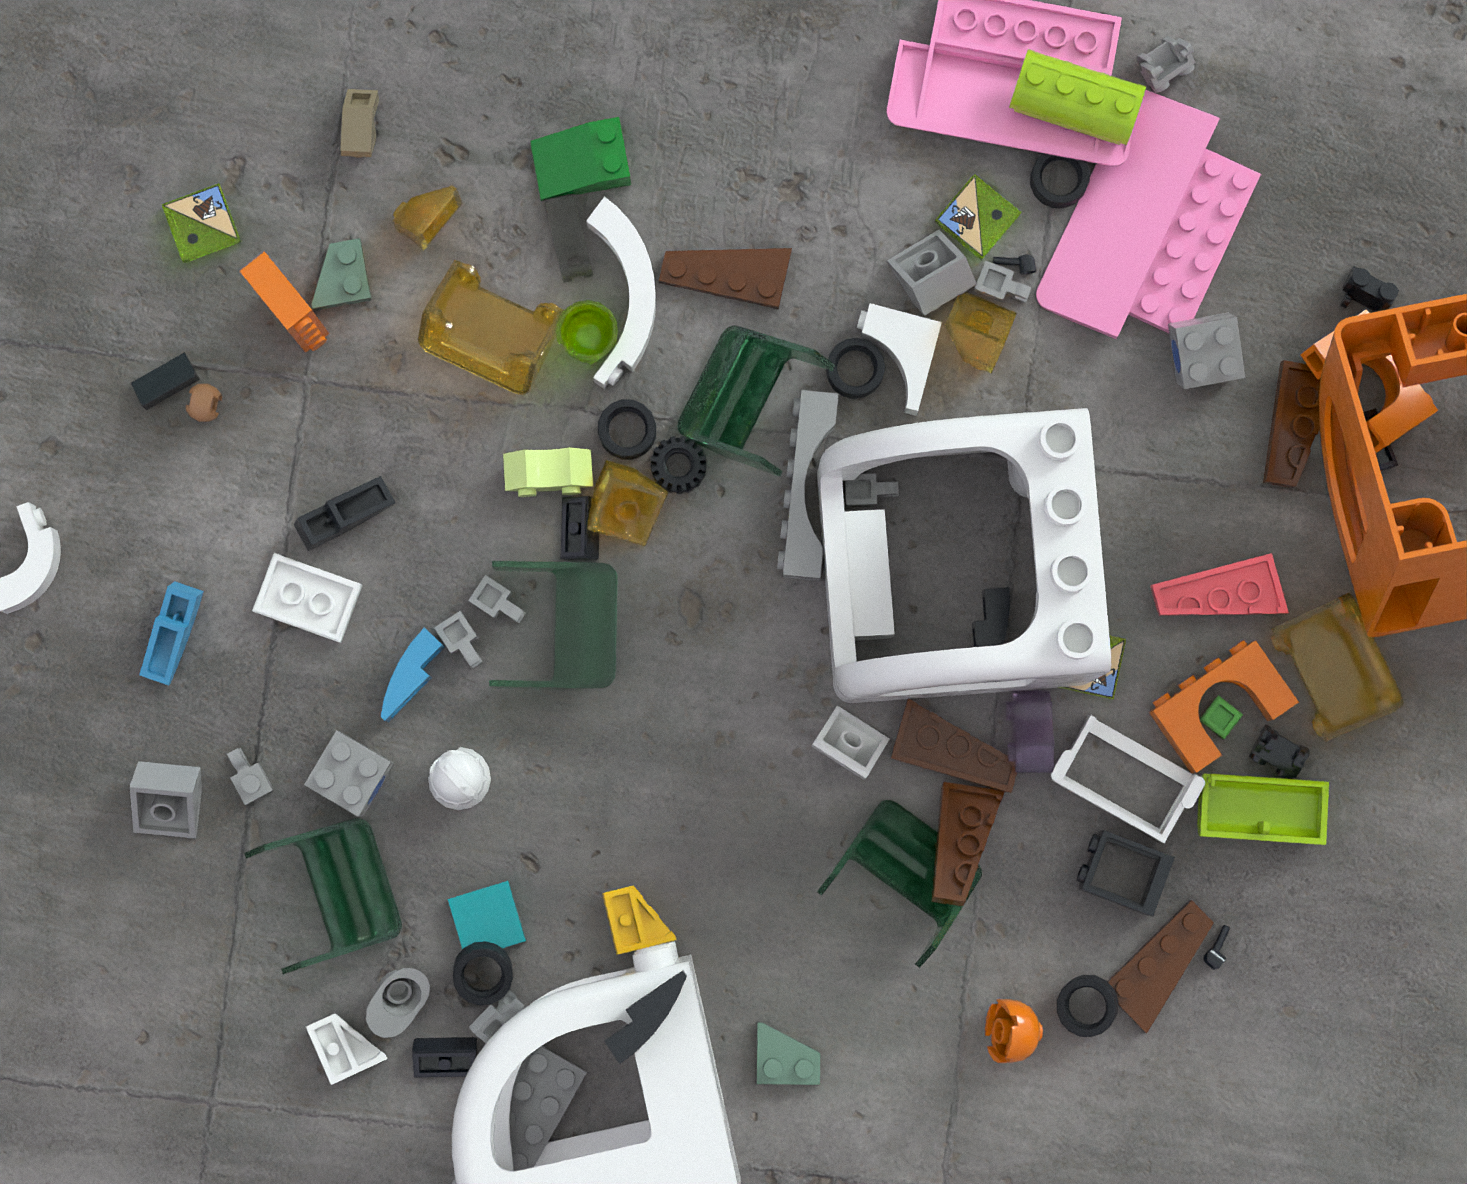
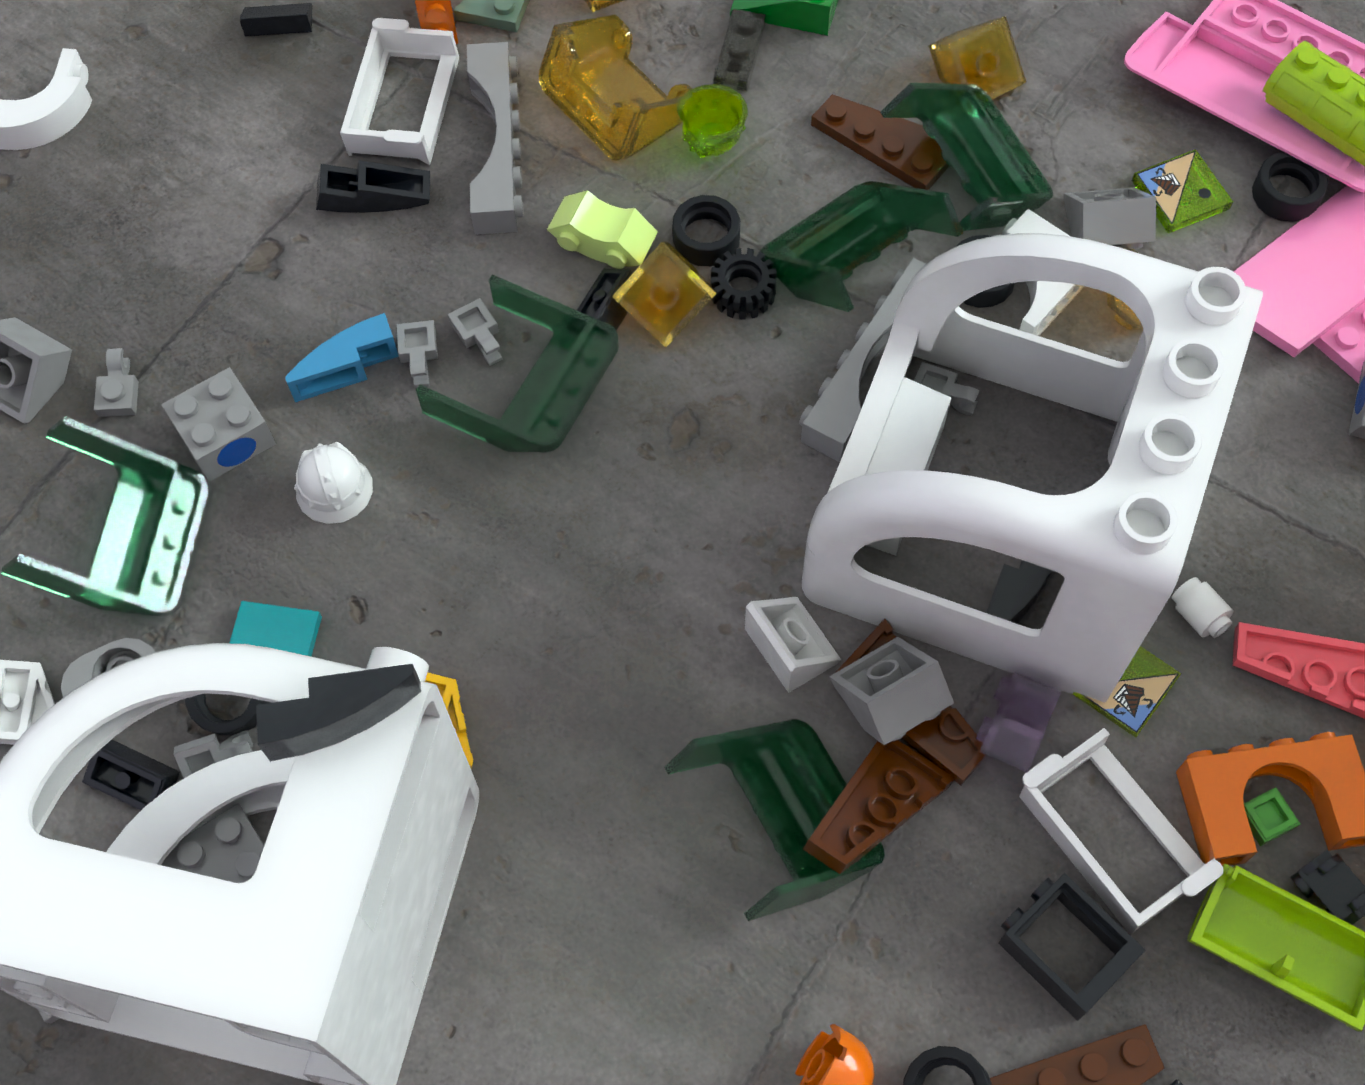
camera: 30 degrees right, 20 degrees down
(171, 632) = (132, 221): dark azure slope -> none
(204, 402) = (299, 42): medium nougat piece -> none
(285, 360) = (396, 39): none -> white piece
(307, 598) = (288, 251): white tile -> none
(444, 474) = (493, 191): none -> light grey arch
(623, 239) = (779, 133): white arch -> none
(769, 167) = (980, 57): none -> clear yellow slope
(785, 1059) = (525, 975): sand green wing -> none
(816, 265) = (979, 147): none -> clear green windscreen
(937, 754) = (893, 689): none -> light grey slope
(997, 282) = (1179, 250): light grey plate -> none
(1025, 262) = (1217, 248): black hand -> none
(1124, 583) = (1203, 608): none -> white brick

